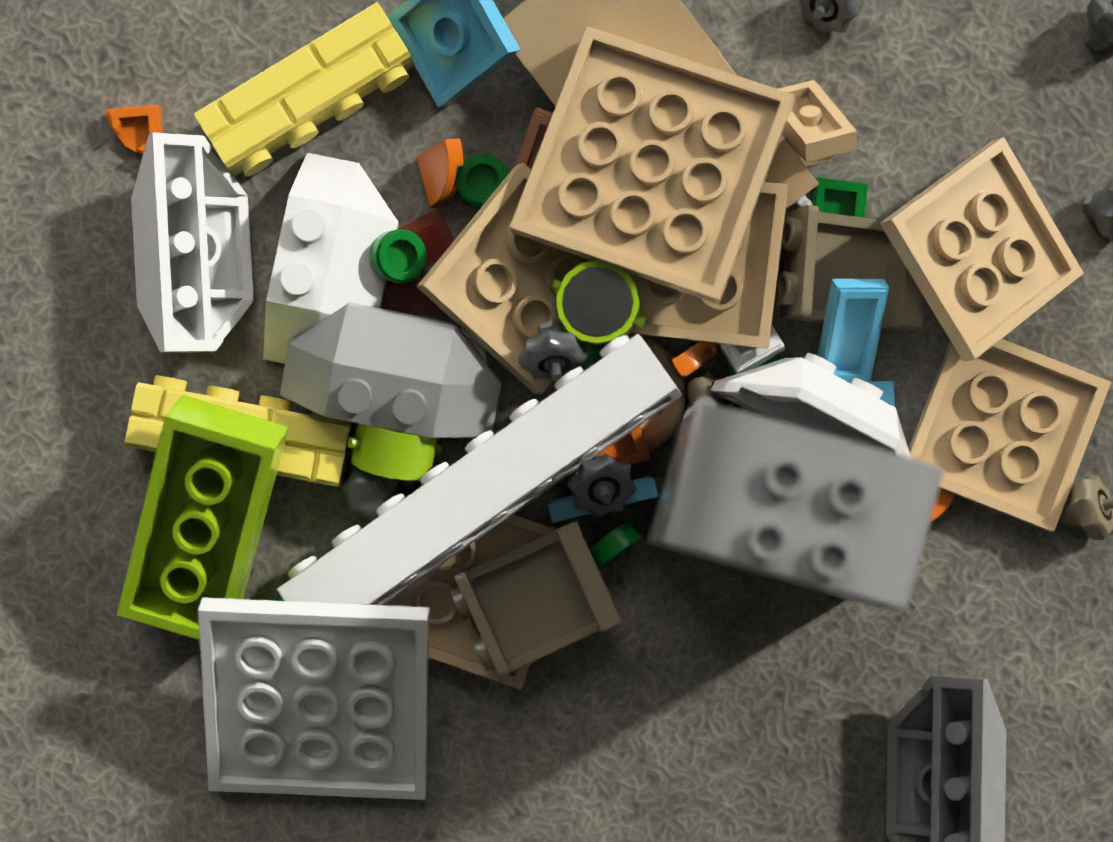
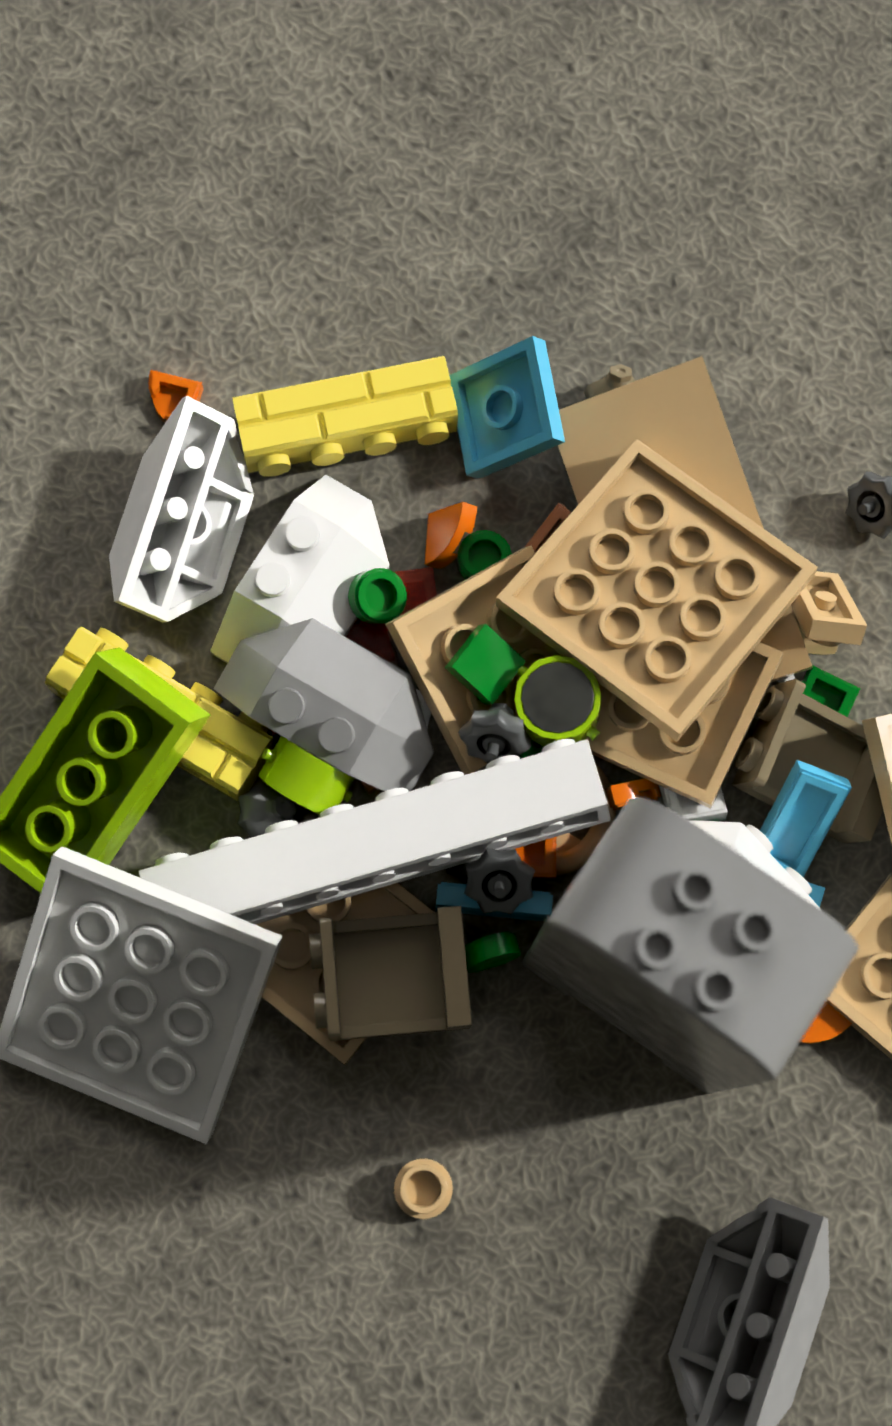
camera: 15 degrees right, 10 degrees down
(520, 291) = (485, 664): none -> green tile
(627, 770) = (423, 1188): none -> tan plate

